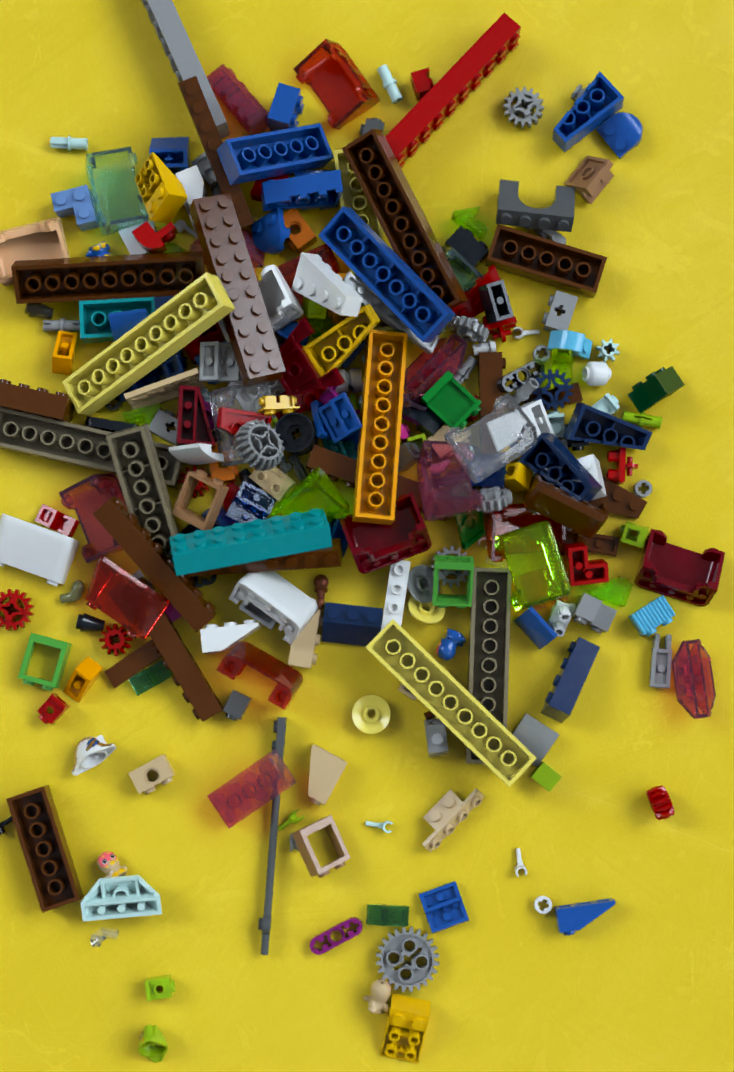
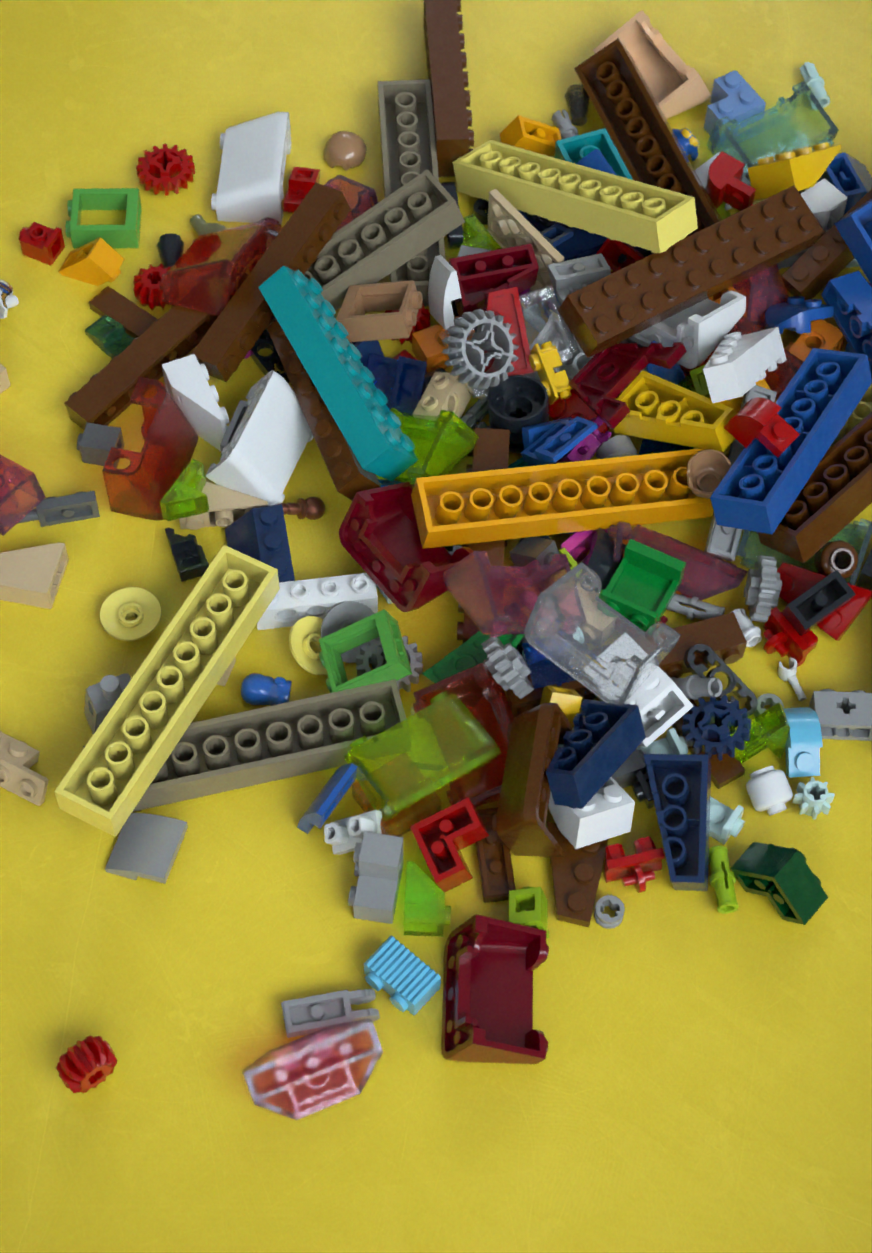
camera: 70 degrees right, 25 degrees down
(31, 482) = (345, 150): none -> medium nougat hair
(307, 663) = (185, 495): none -> clear neon green slope
(335, 669) = (187, 555): none -> black slope
(383, 293) = (760, 421): none -> red brick
(396, 335) = (706, 472): none -> medium nougat hair
(467, 277) = (836, 556): none -> reddish brown head
(545, 776) = (92, 877): lime panel -> none
(570, 679) = (258, 872): dark blue wedge -> none

